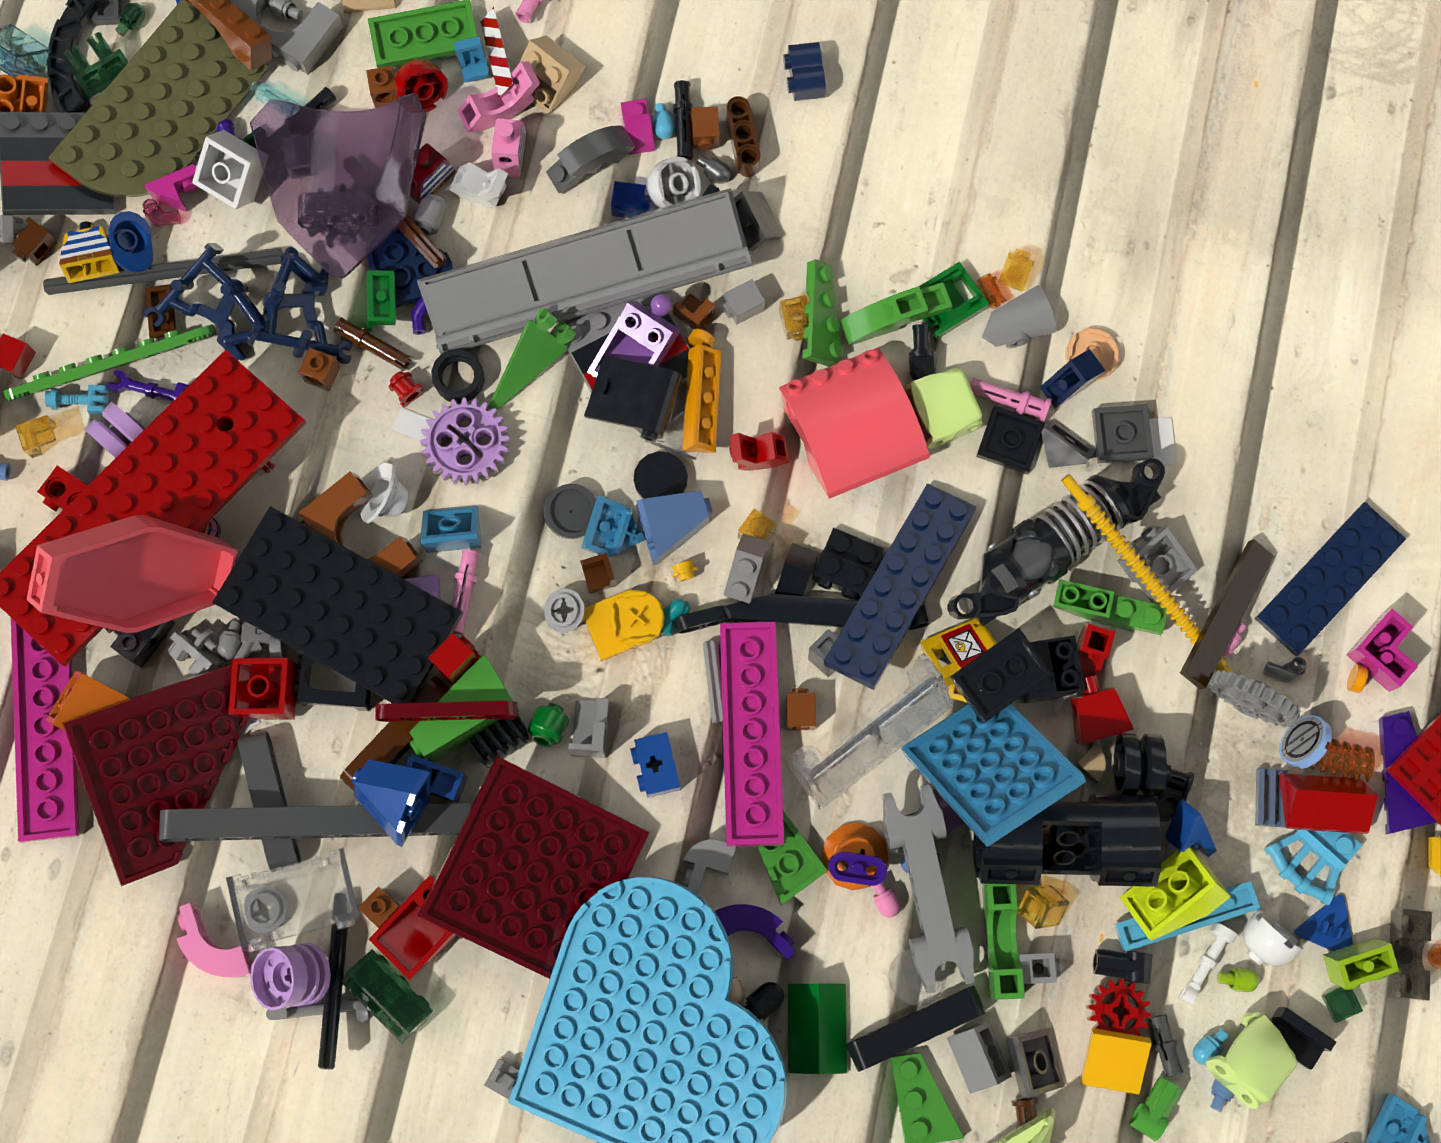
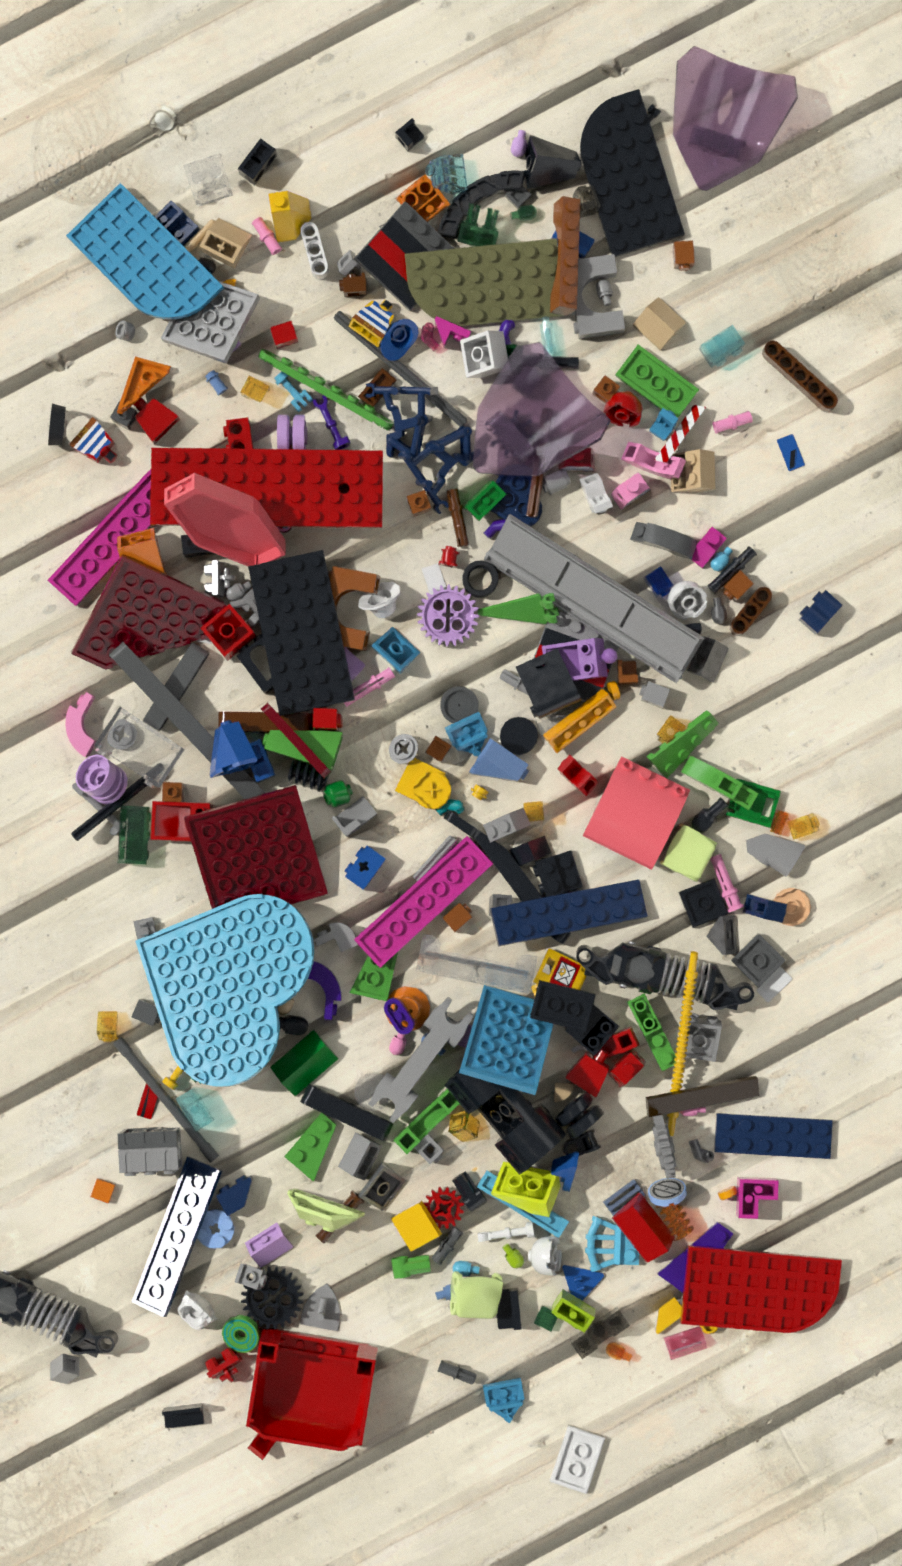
camera: 50 degrees right, 10 degrees up
(600, 432) = (513, 680): none -> light grey axle
(1127, 669) = (626, 1068): none -> red torso

